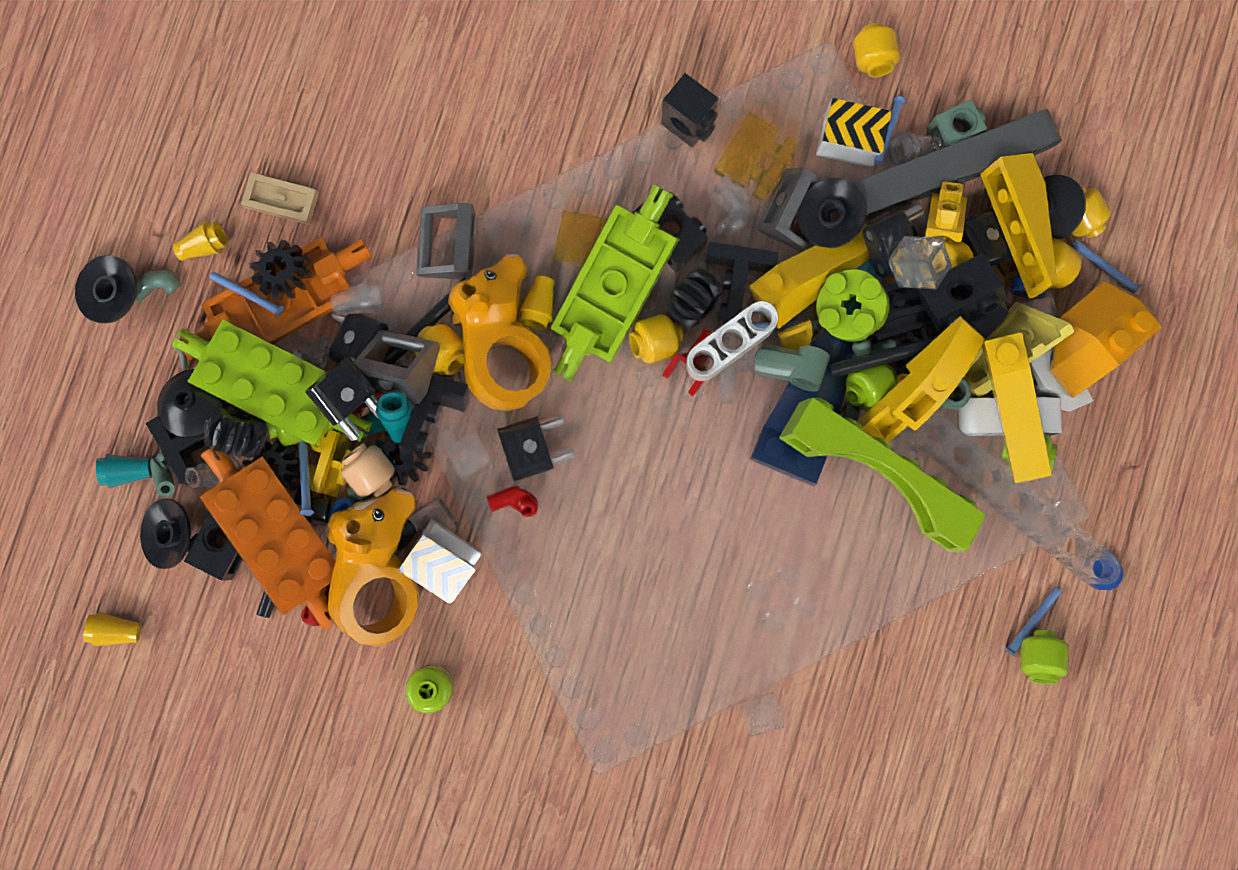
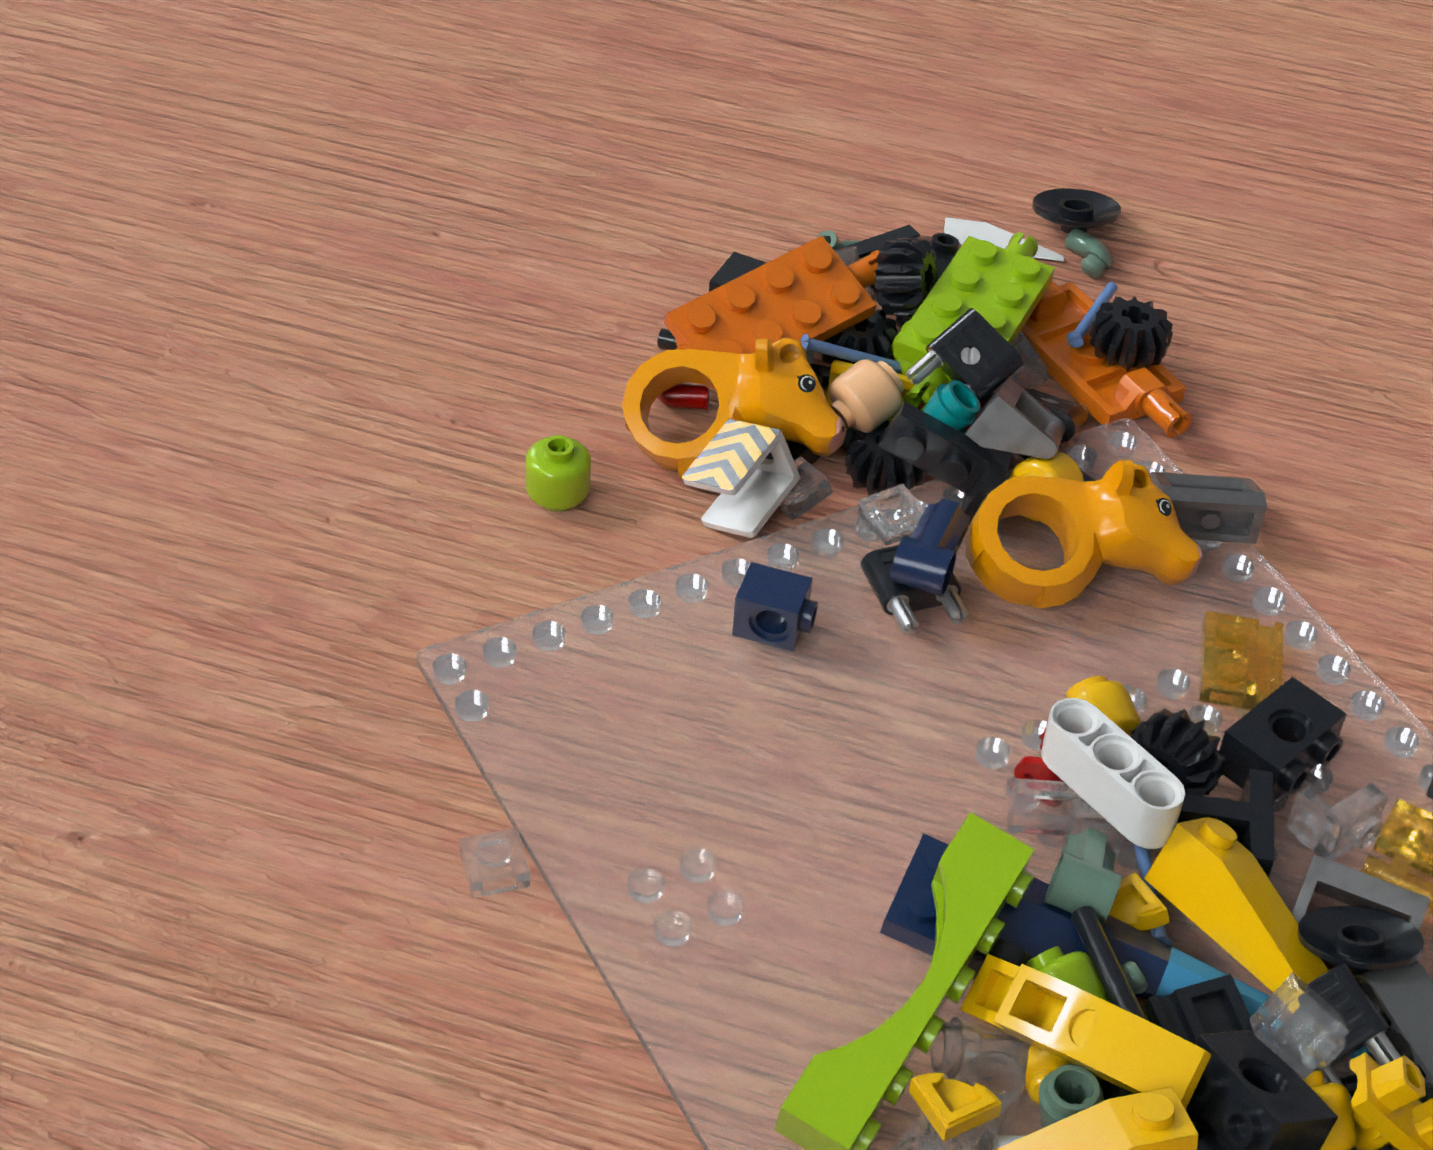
camera: 85 degrees right, 40 degrees down
(110, 630) = (643, 206): yellow cone -> none
(121, 470) = (846, 214): teal cone -> none
(129, 361) = (984, 231): none -> white sticker
(165, 533) = (760, 249): black dish -> none
(202, 241) = (1156, 286): yellow cone -> none
(280, 198) = (1230, 358): tan plate -> none
(360, 298) = (1106, 414): clear cone -> none
(516, 498) = (835, 562): red arm -> none
(530, 438) = (930, 554): none -> dark blue piece
(538, 305) = (1131, 592): yellow cone -> none
(563, 540) = (774, 607): none -> dark blue brick
(614, 283) = (1181, 657): lime plate -> none
(864, 321) = (1203, 951): lime plate -> none
(961, 456) = (953, 1104): none -> yellow tile

